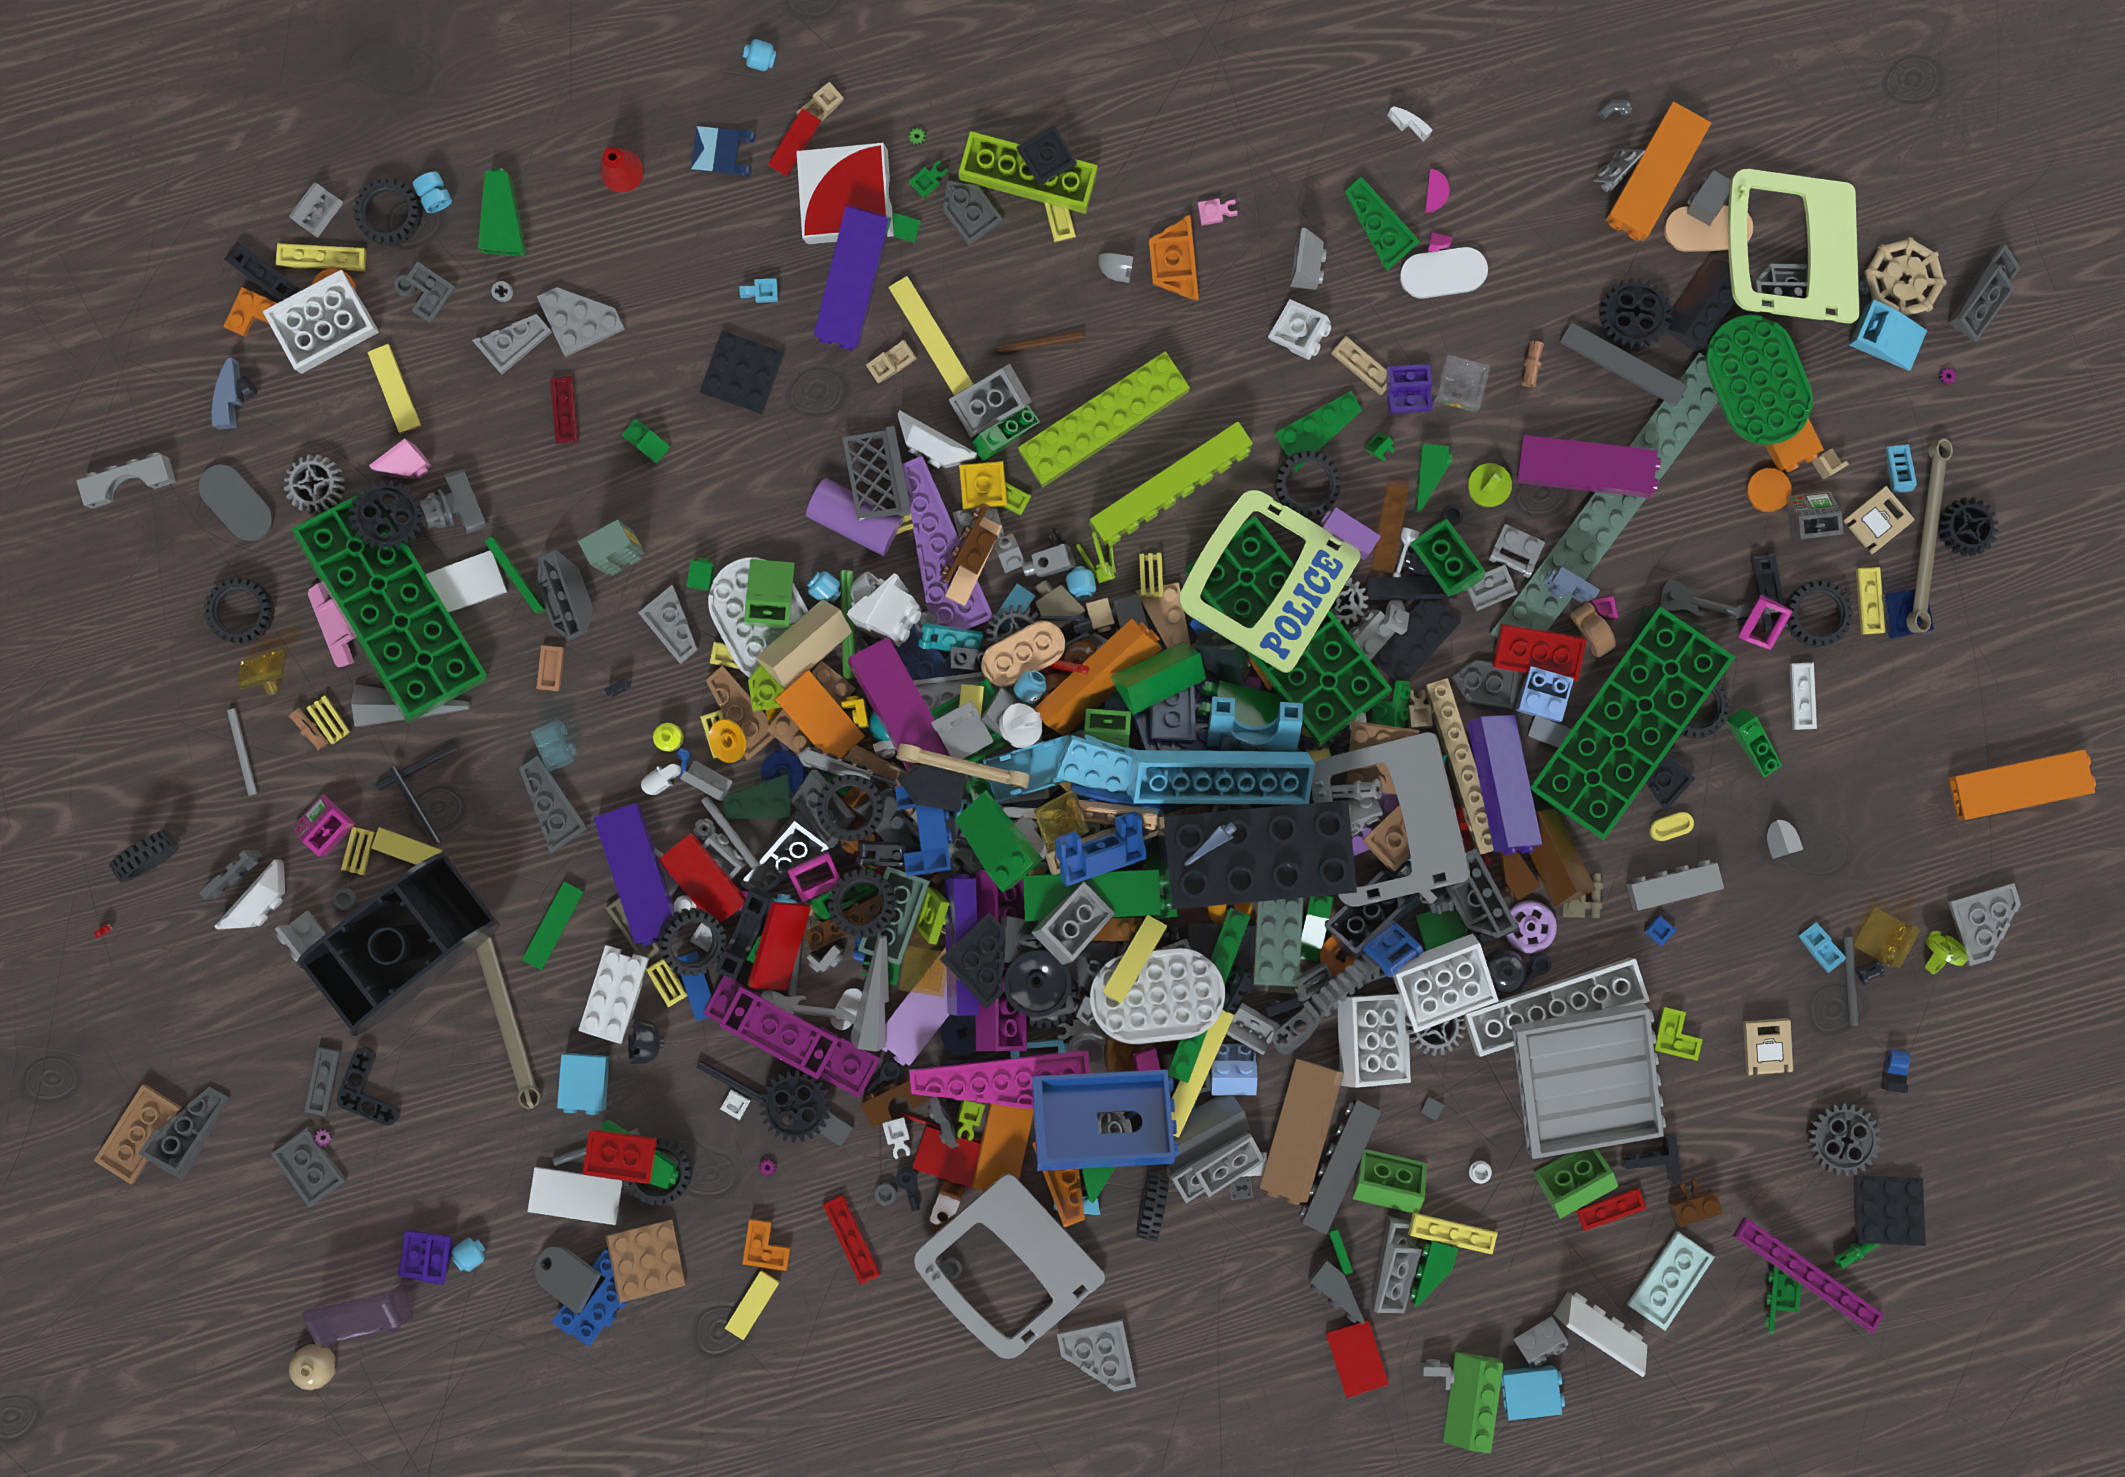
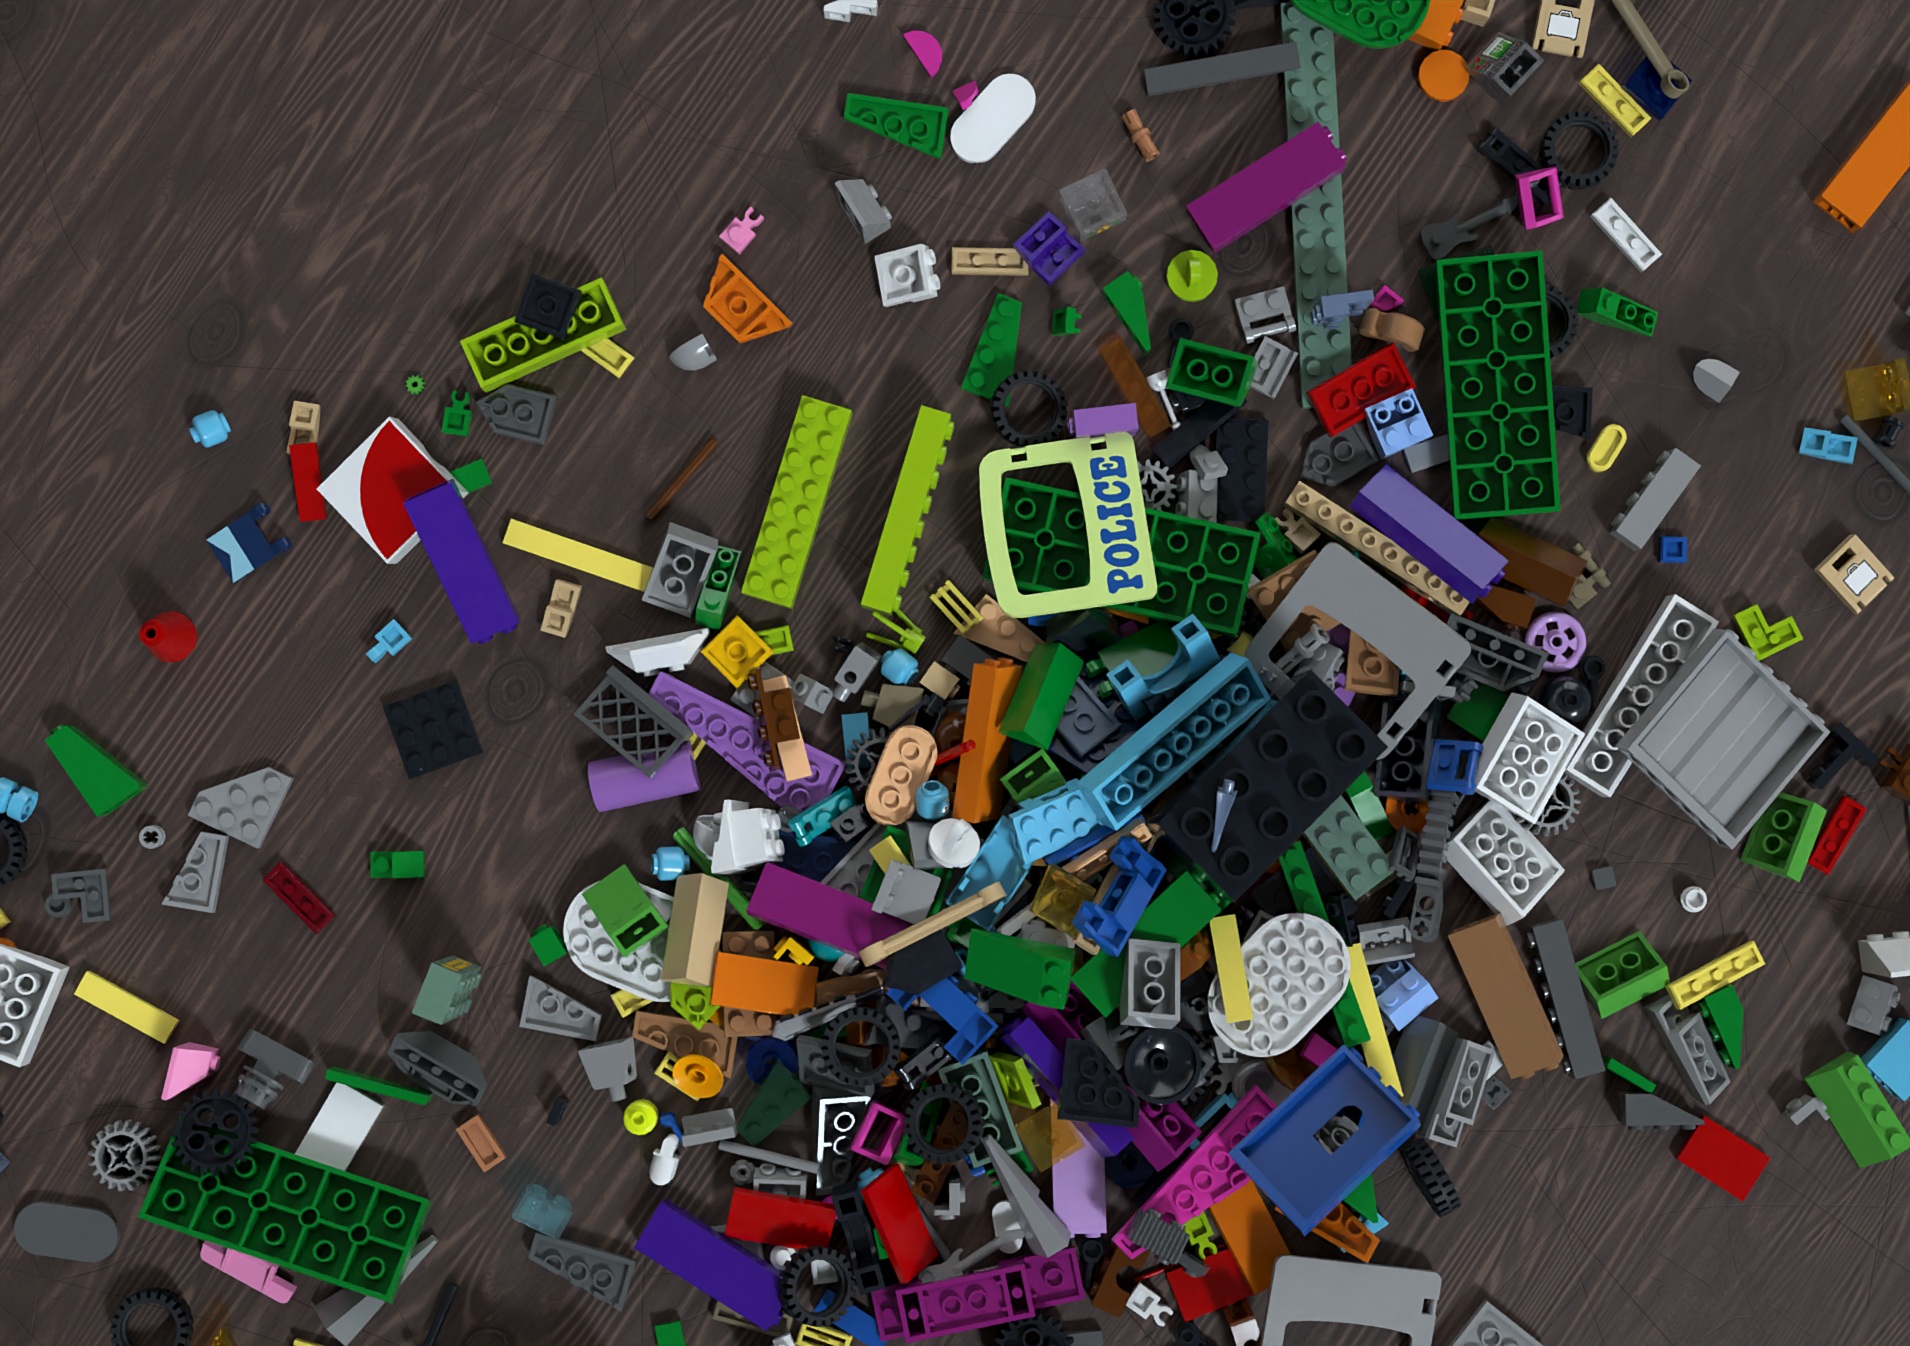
camera: 45 degrees left, 0 degrees up
(676, 687) = (610, 1065): none -> light grey torso
(941, 1091) = (1157, 1235): none -> dark grey brick

